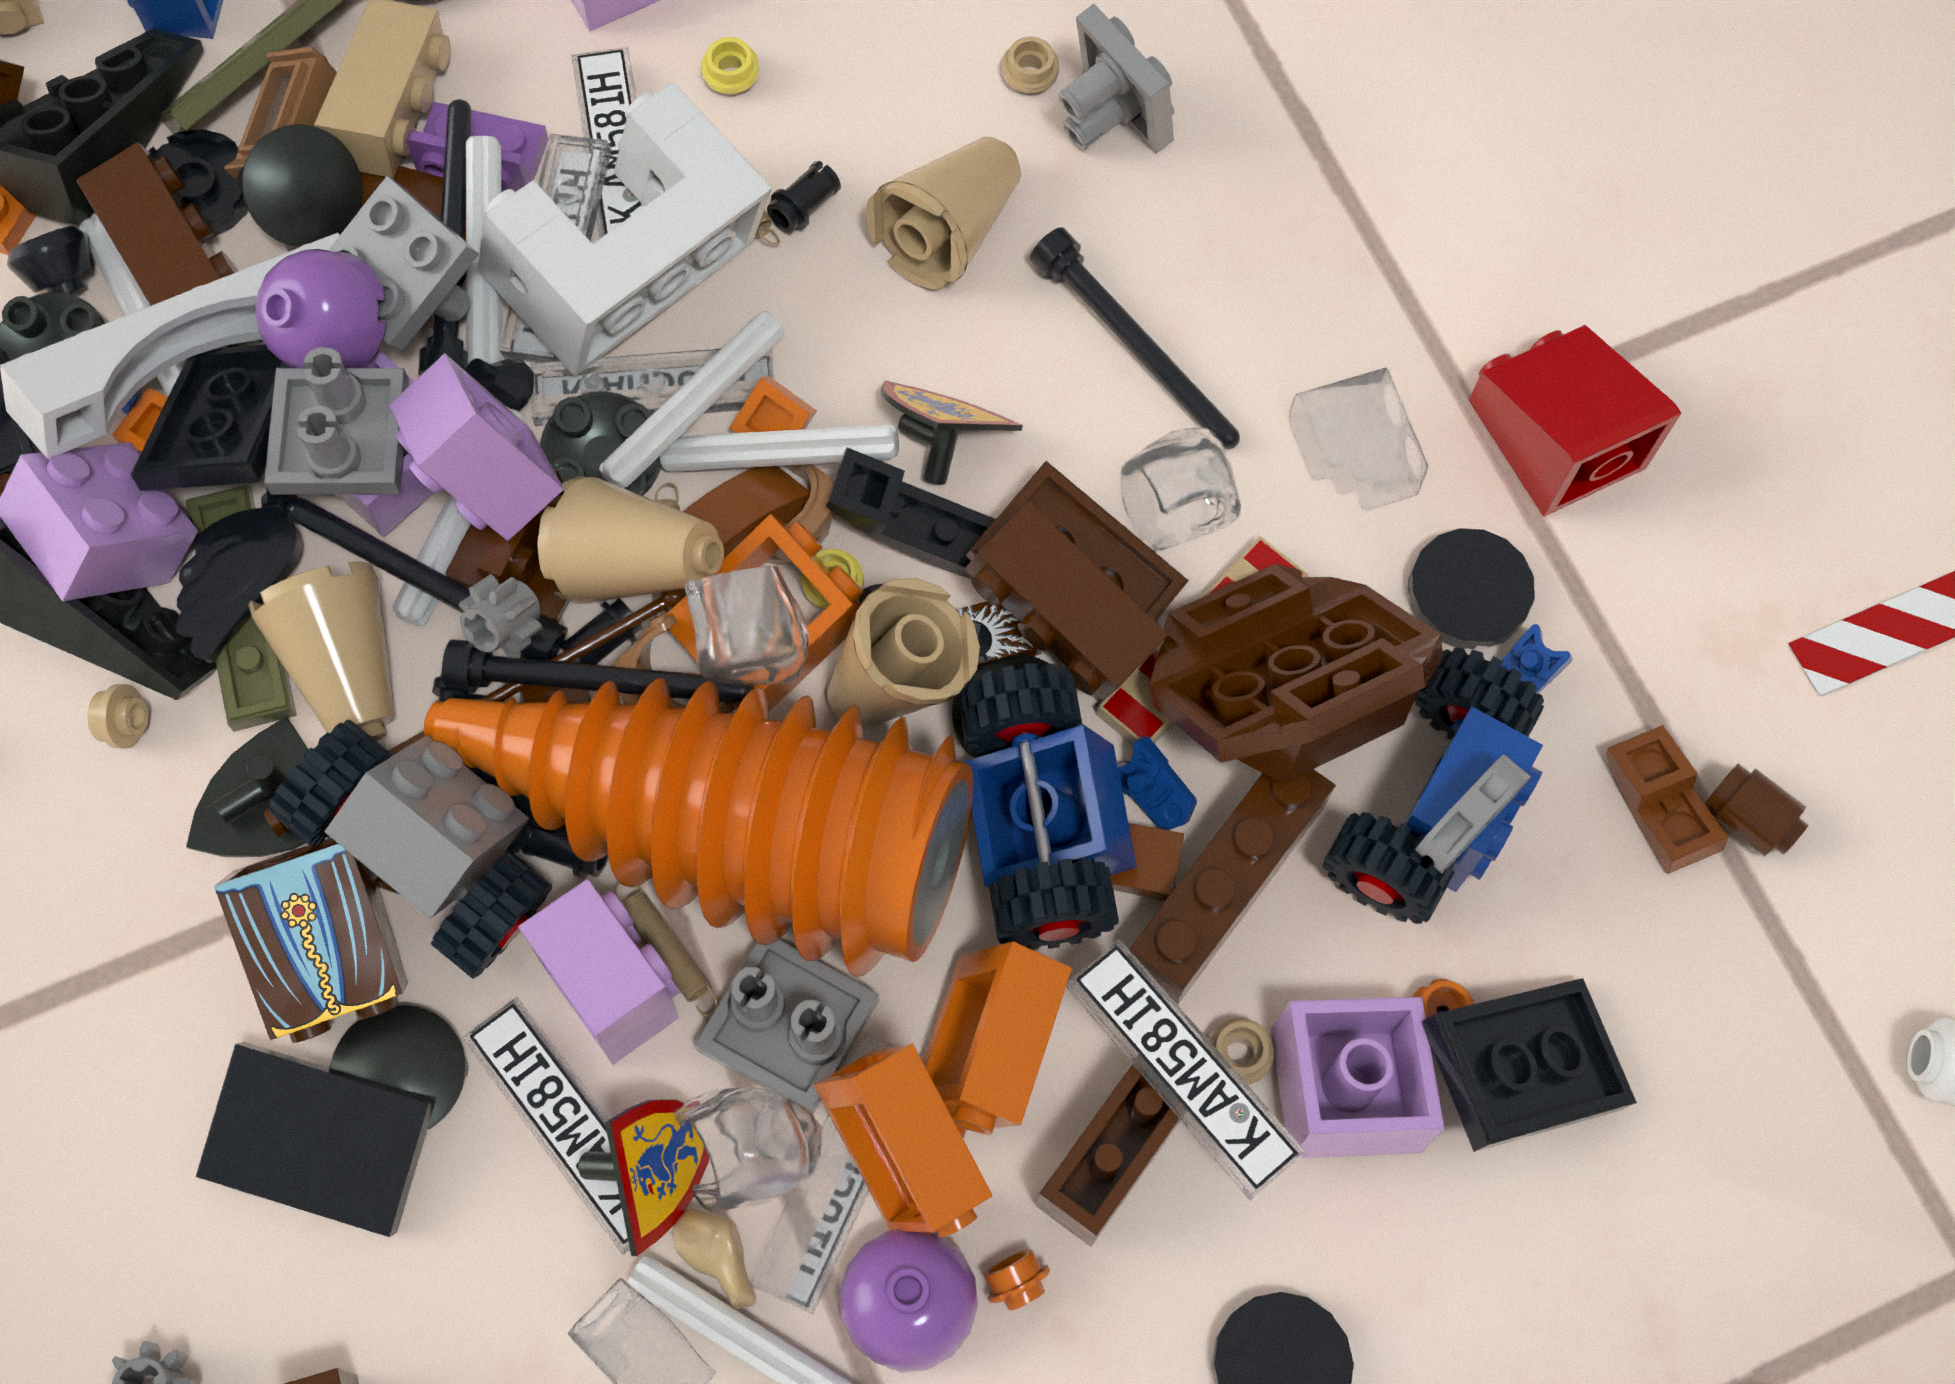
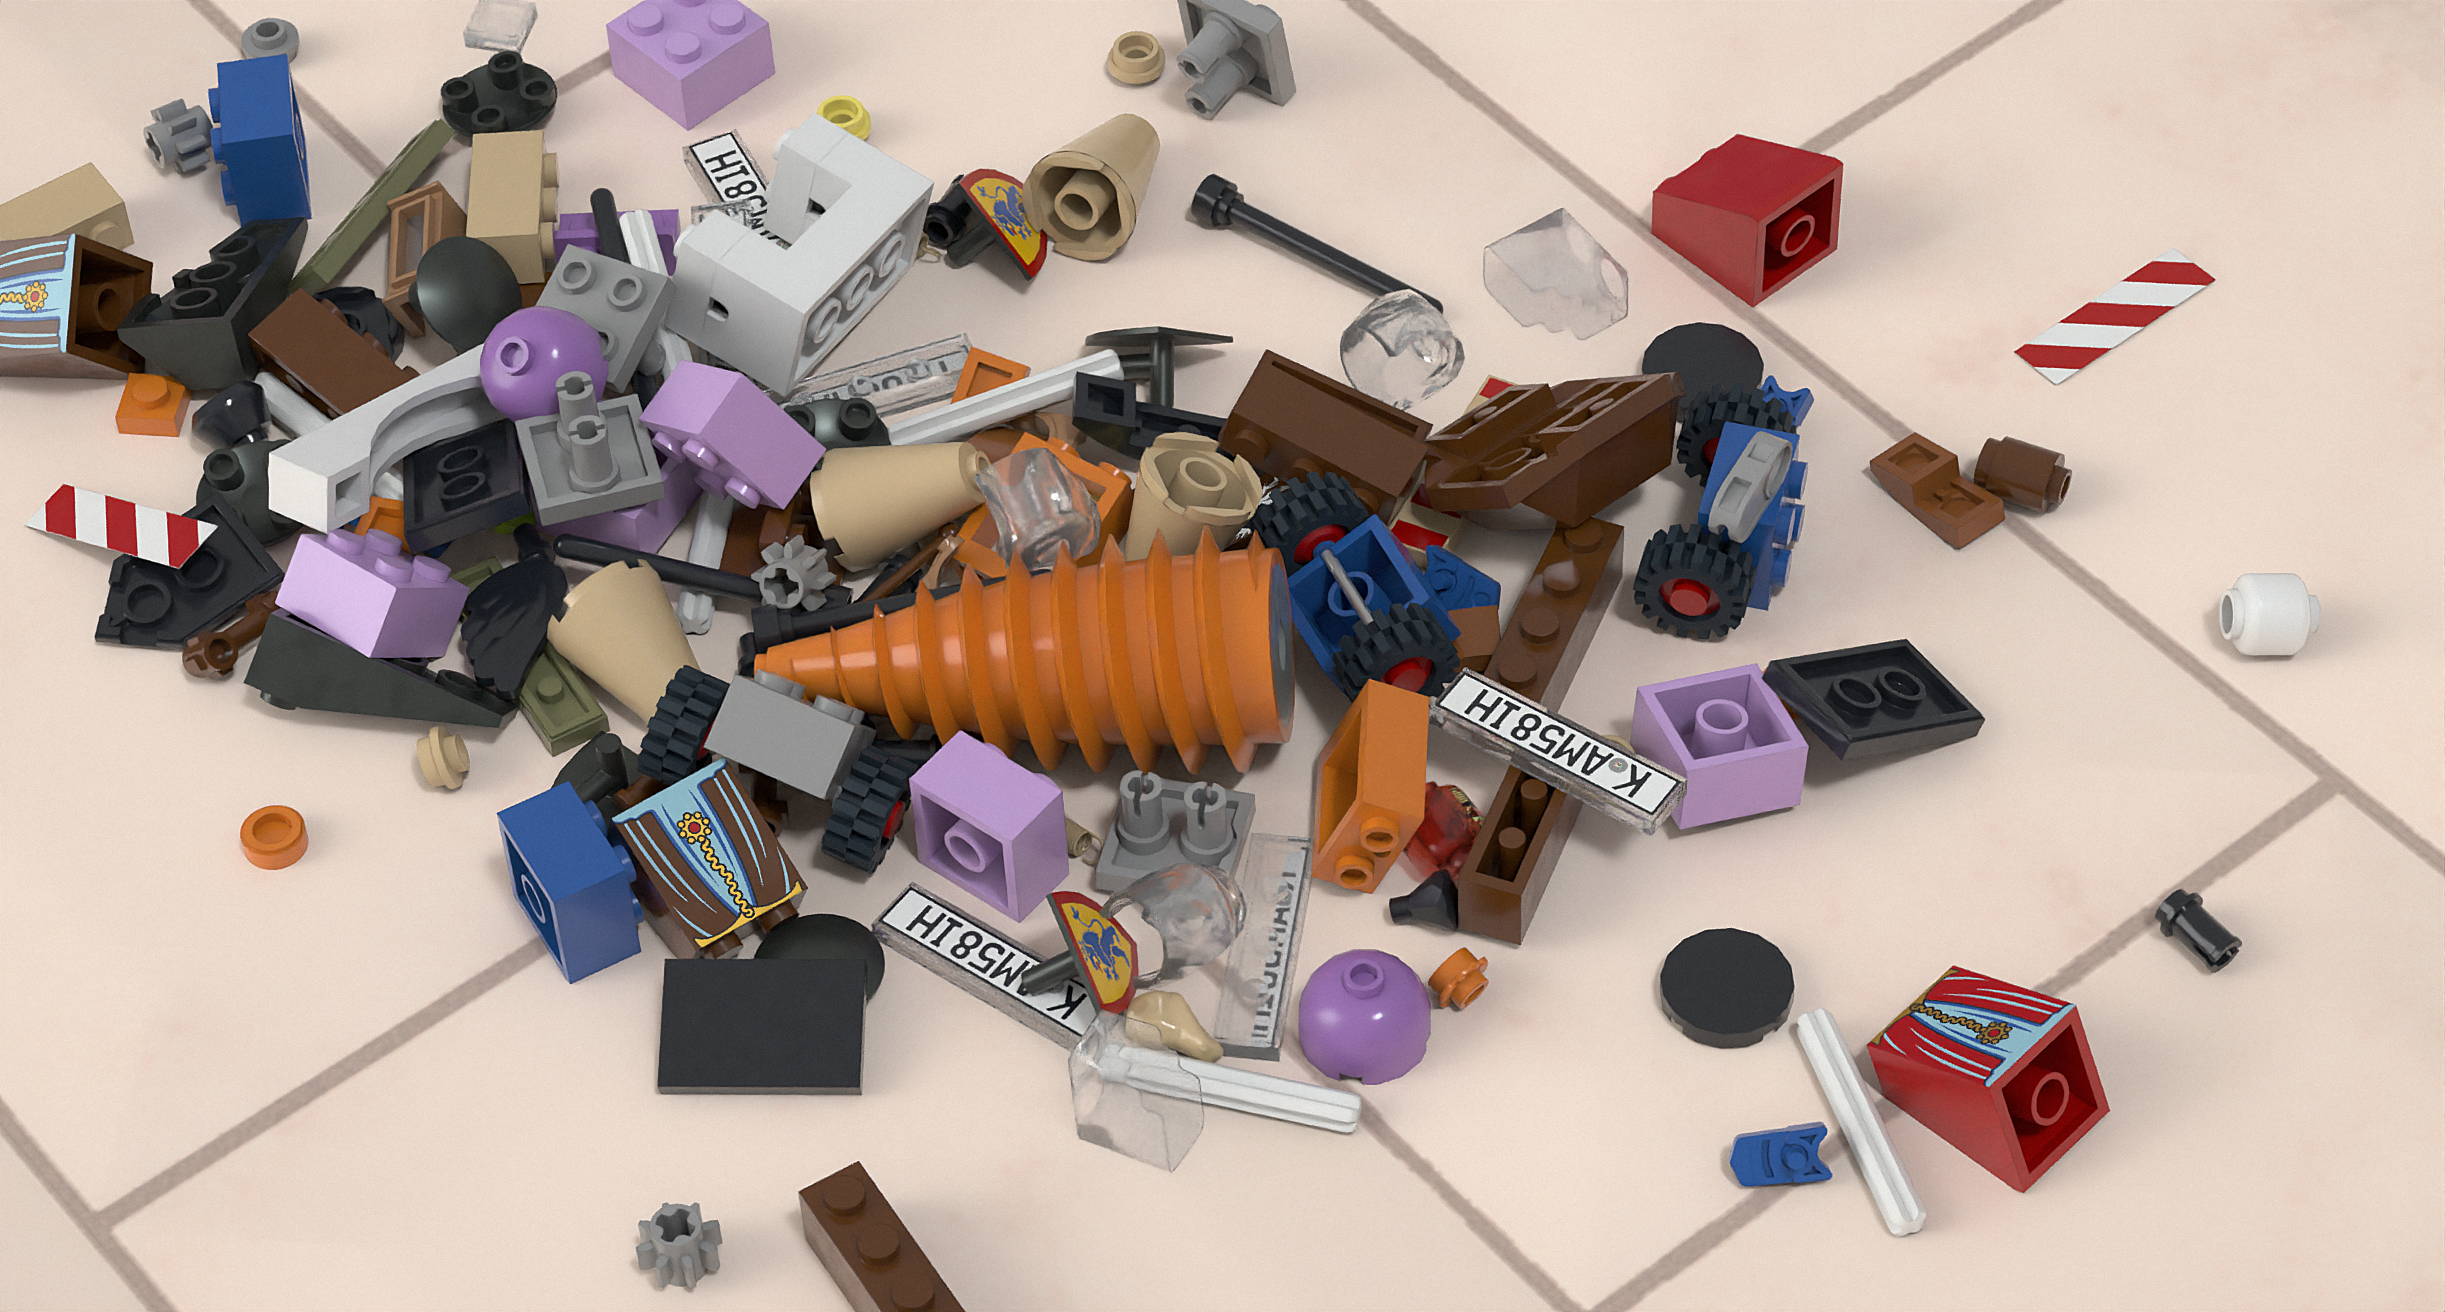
camera: 10 degrees left, 20 degrees down
(170, 921) = (571, 881): none -> blue brick
(691, 400) = (914, 375): white axle -> none
(838, 228) = (999, 205): none -> shield
(904, 1142) = (1293, 892): orange window -> none
(1017, 1174) = (1430, 903): none -> black rock
(1060, 1098) = (1446, 832): none -> clear red head

